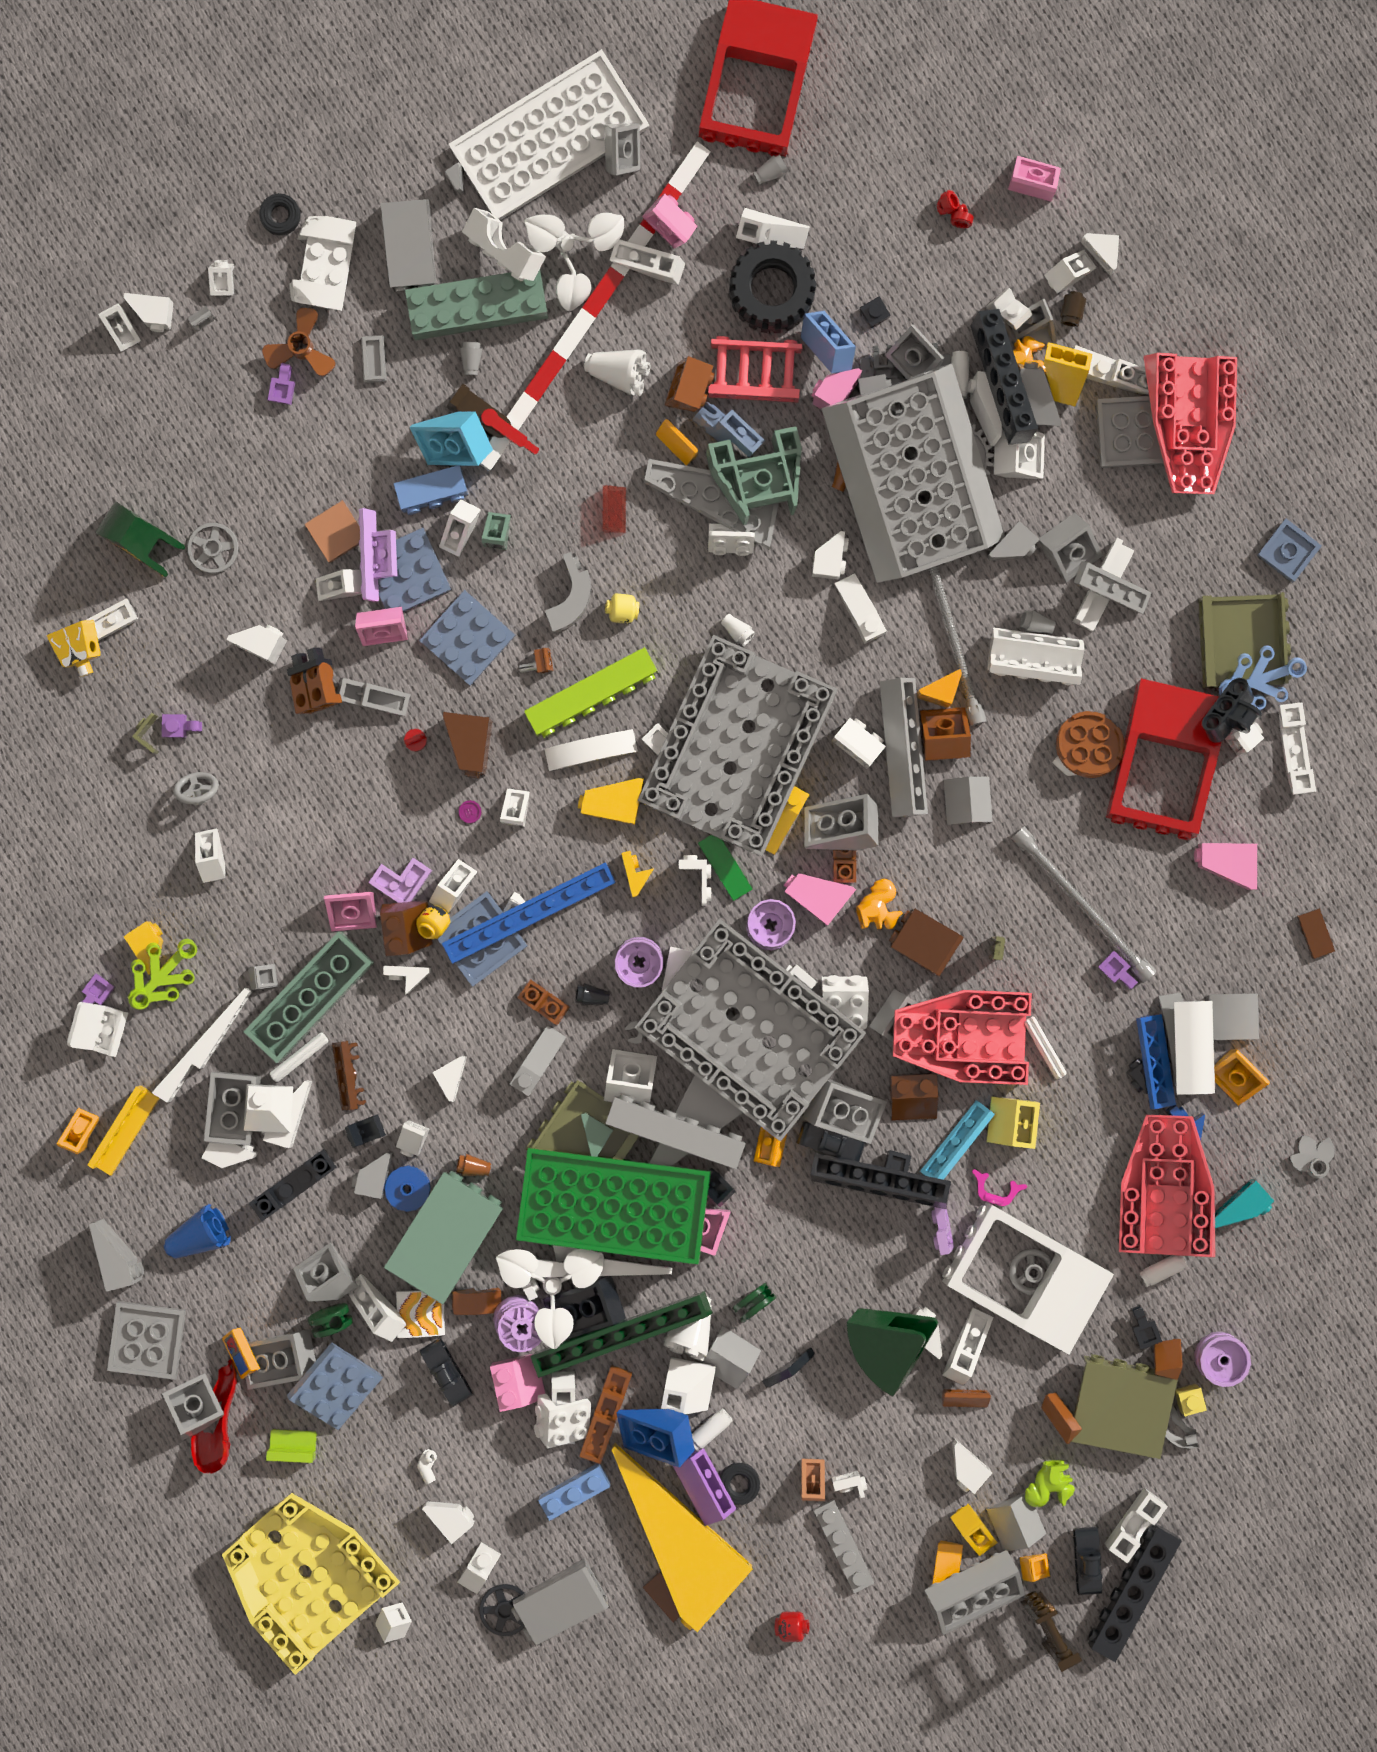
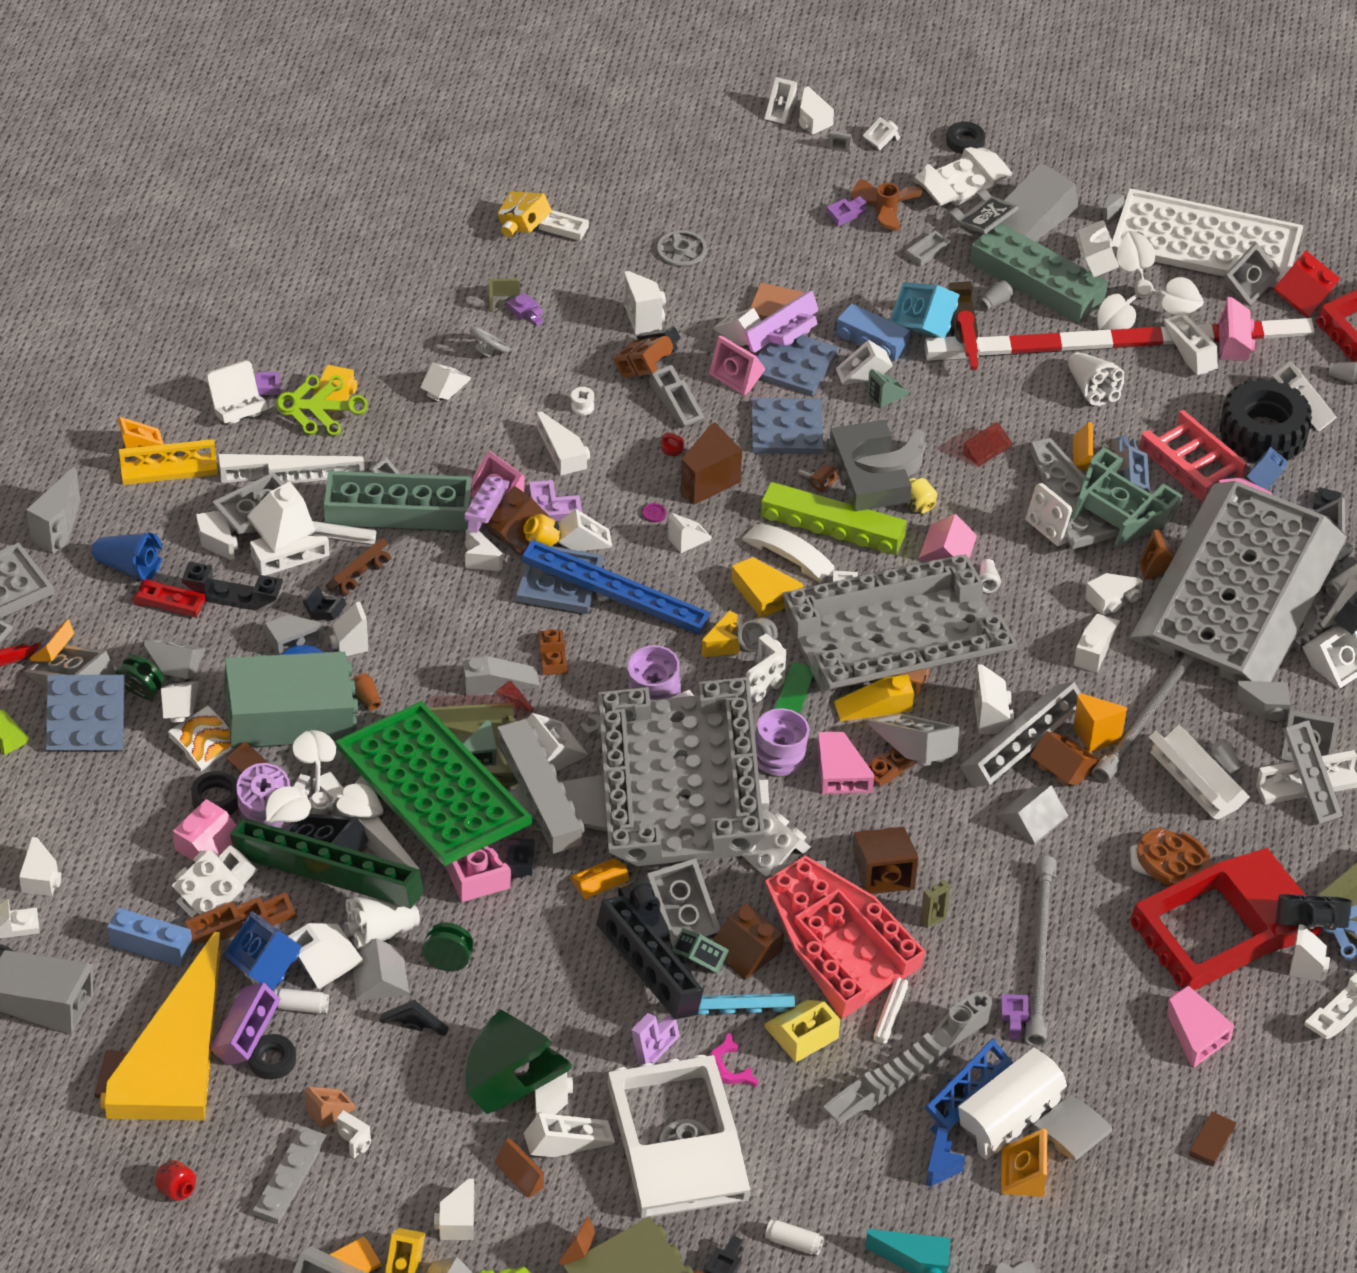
camera: 45 degrees right, 40 degrees down
(134, 535) = (641, 188): dark green piece -> none
(263, 1233) = (169, 598): none -> red plate
(320, 771) = (582, 400): none -> white wheel
(353, 825) = (563, 445): none -> white slope
(378, 947) = (485, 502): none -> lavender bracket
(389, 290) = (985, 215): none -> flag
(424, 1465) = (72, 827): white arm -> none
(446, 1372) = (168, 784): black beam -> none
(450, 1076) = (428, 629): white slope -> none
(467, 1358) = (216, 779): none -> black tyre
(575, 1074) = (510, 693): none -> clear red slope
(591, 995) = (591, 675): black cone -> none
(595, 656) = (865, 488): none -> dark grey arch
(659, 852) = (753, 629): none -> light grey wheel
(666, 114) = (1306, 284): none -> red slope
(682, 629) = (947, 539): none -> bright pink slope
(689, 384) = (1133, 415): dark orange slope -> none
(829, 496) = (1156, 556): none -> dark orange slope
(874, 909) = (875, 807): light orange animal -> none
(893, 1135) = (700, 950): none -> slope
(1099, 1084) = (958, 1024): none -> light grey piece
(1168, 1192) = (860, 1177): coral wedge -> none

